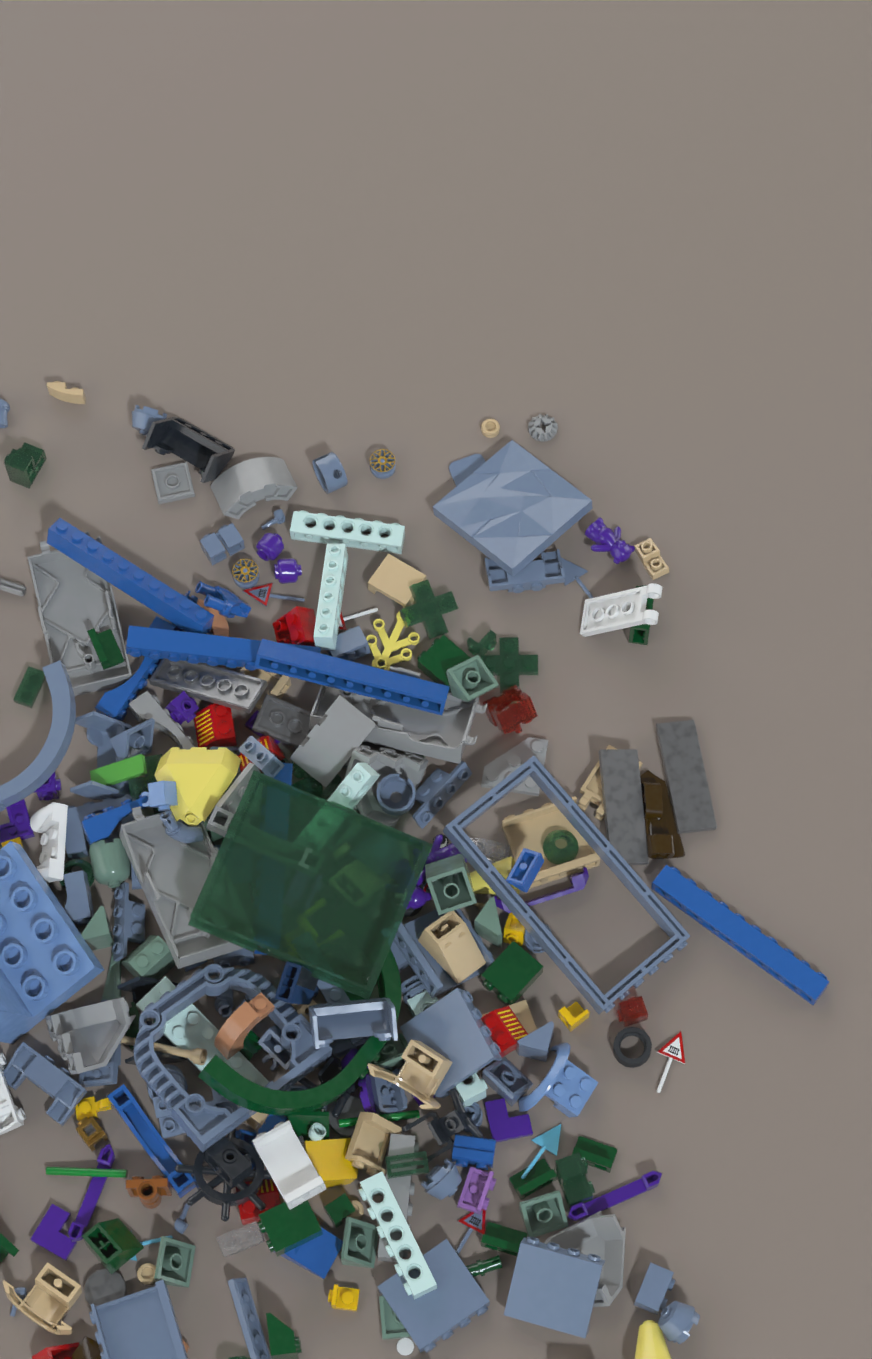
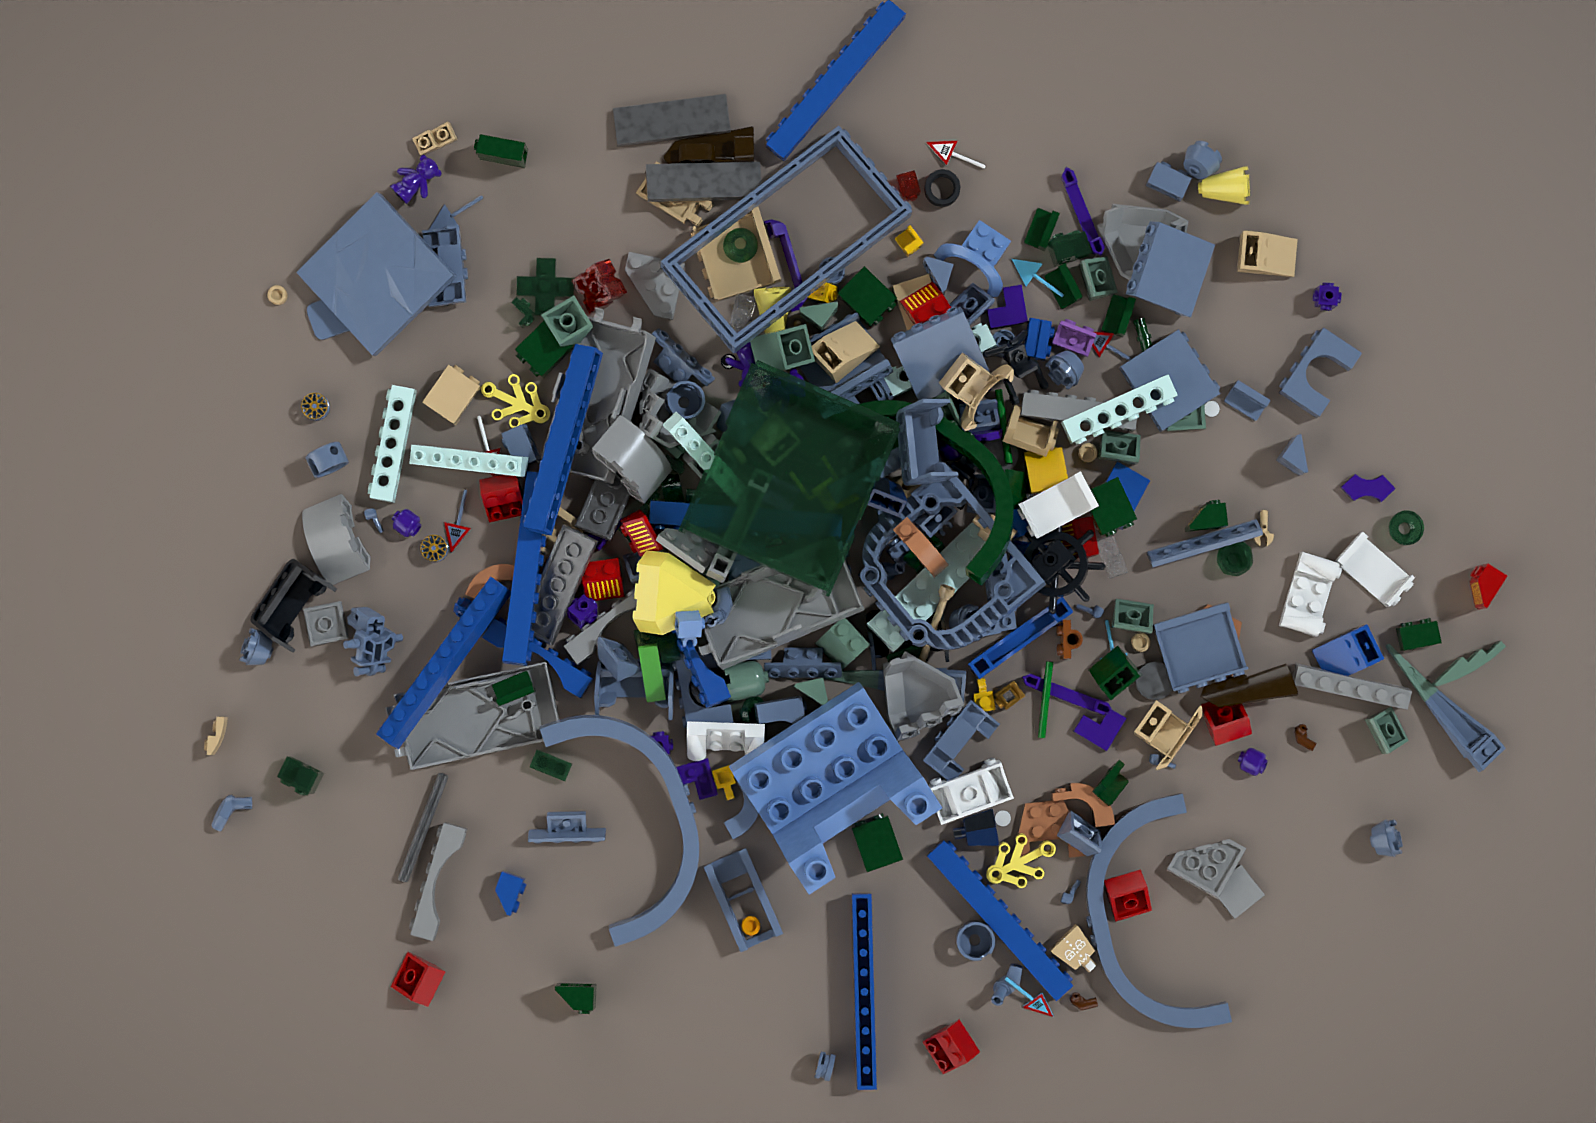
camera: 90 degrees left, 20 degrees up
(152, 517) = (371, 641): none -> sand blue piece
(223, 601) = (467, 567): blue connector -> none
(230, 539) = (395, 563): sand blue piece -> none
(261, 757) = (648, 530): sand blue bracket -> none
(287, 571) = (434, 505): dark purple head -> none
(317, 1132) = (1023, 481): light aqua hinge -> none
(339, 1209) = (1089, 463): dark green panel -> none
(344, 1298) = (1168, 462): yellow bracket -> none
(423, 1154) = (1060, 399): clear green tile -> none
(428, 609) = (484, 363): clear green plate -> none
(525, 869) = (777, 275): blue slope -> none
(537, 433) = (287, 245): light grey gear -> none
(613, 612) = (500, 180): white hinge -> none

